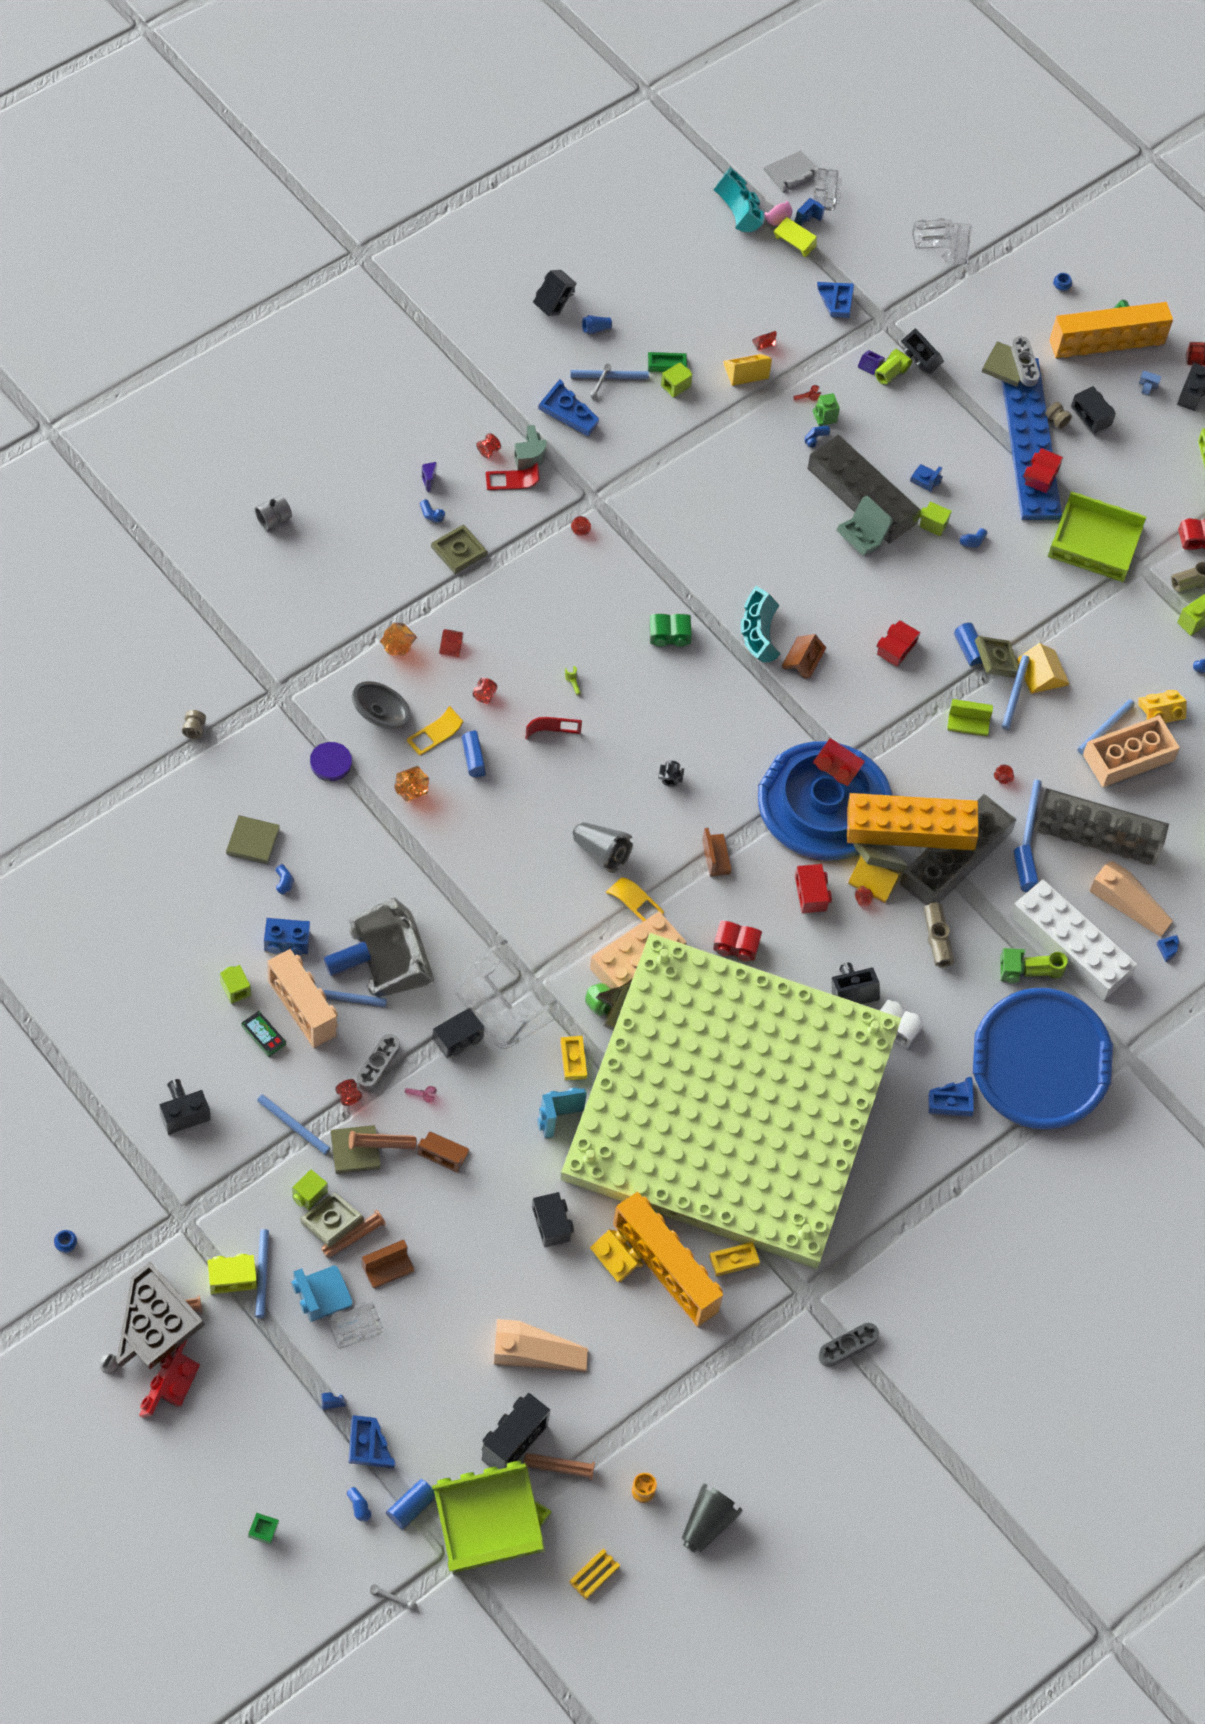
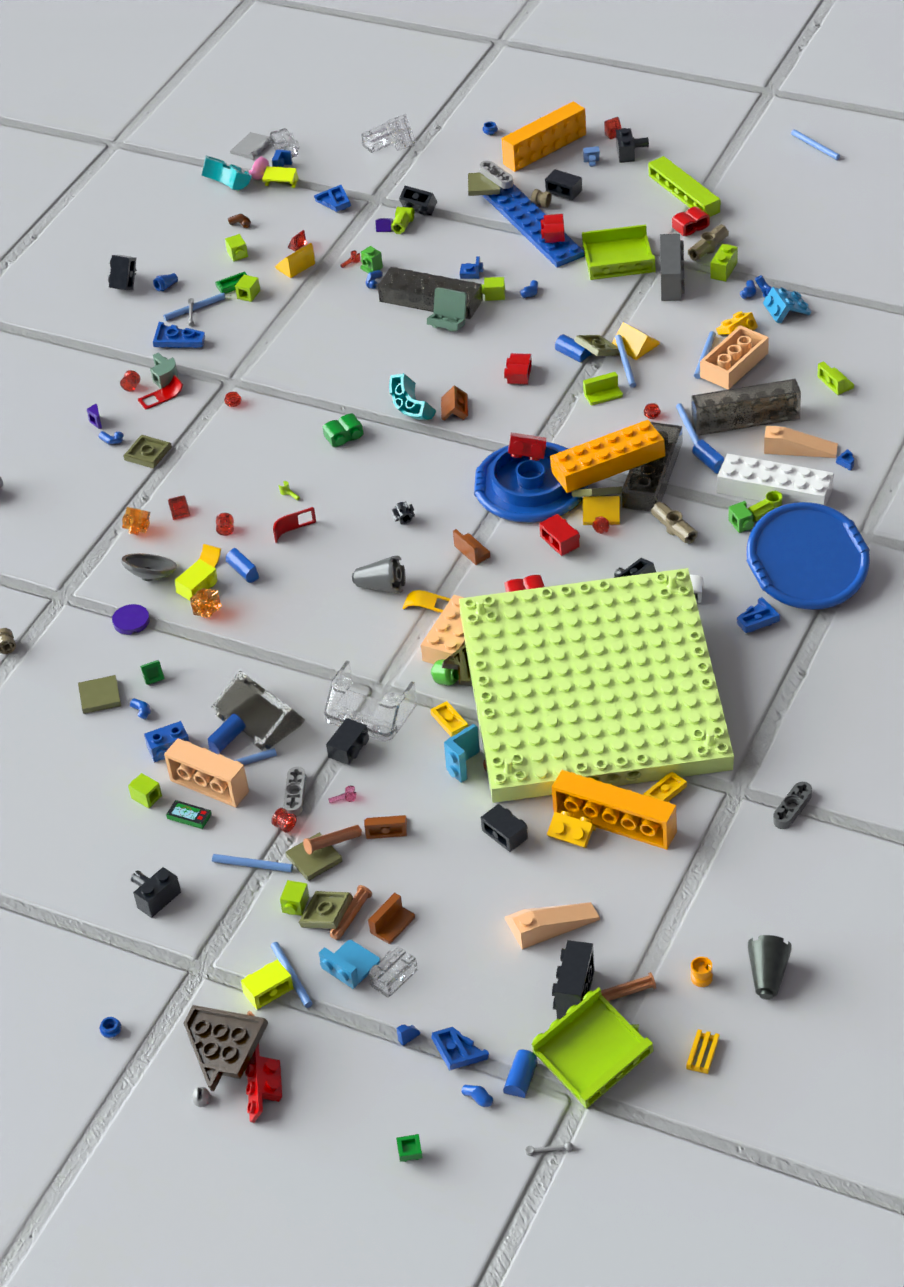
camera: 15 degrees left, 15 degrees down
(316, 842) = (152, 672): none -> green tile
(418, 749) = (195, 578): none -> neon yellow brick
(695, 315) = (236, 247): none -> lime brick
(722, 275) = (240, 218): none -> reddish brown arm
(1138, 592) = (672, 267): none -> dark grey brick

